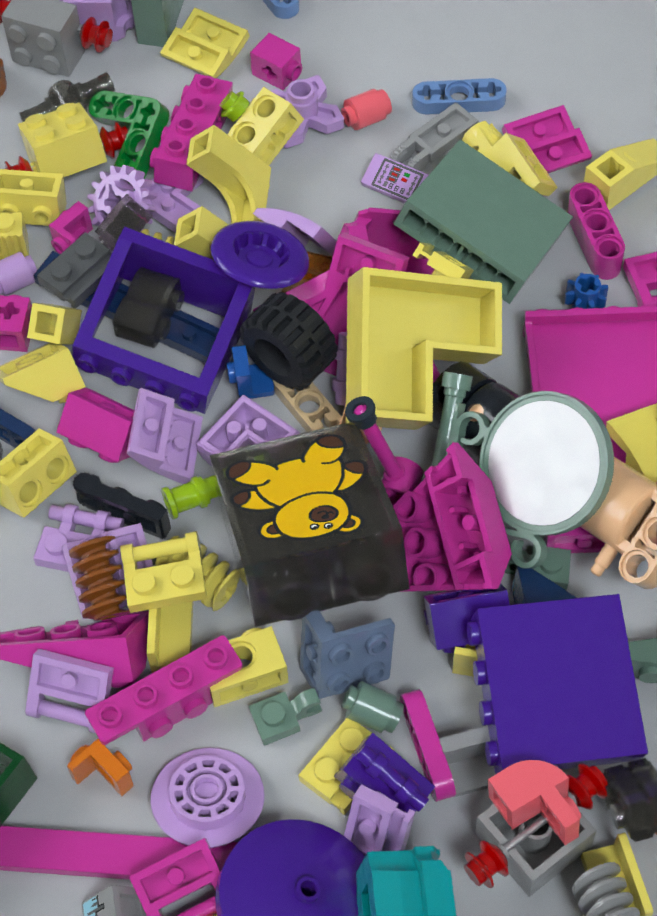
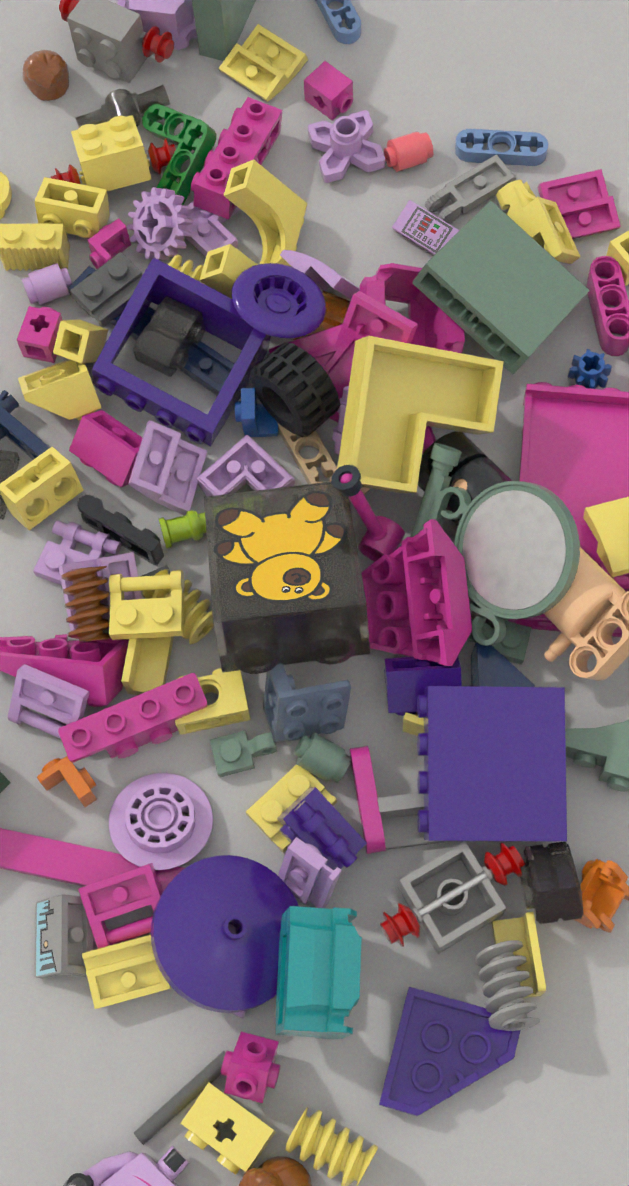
camera: 10 degrees right, 10 degrees up
(125, 213) = (159, 243): clear smoke brick -> none
(234, 105) = (279, 136): lime plate -> none
(266, 125) = (306, 161): light yellow brick -> none
(442, 262) = (453, 332): light yellow plate -> none
(533, 789) = (451, 864): coral brick -> none

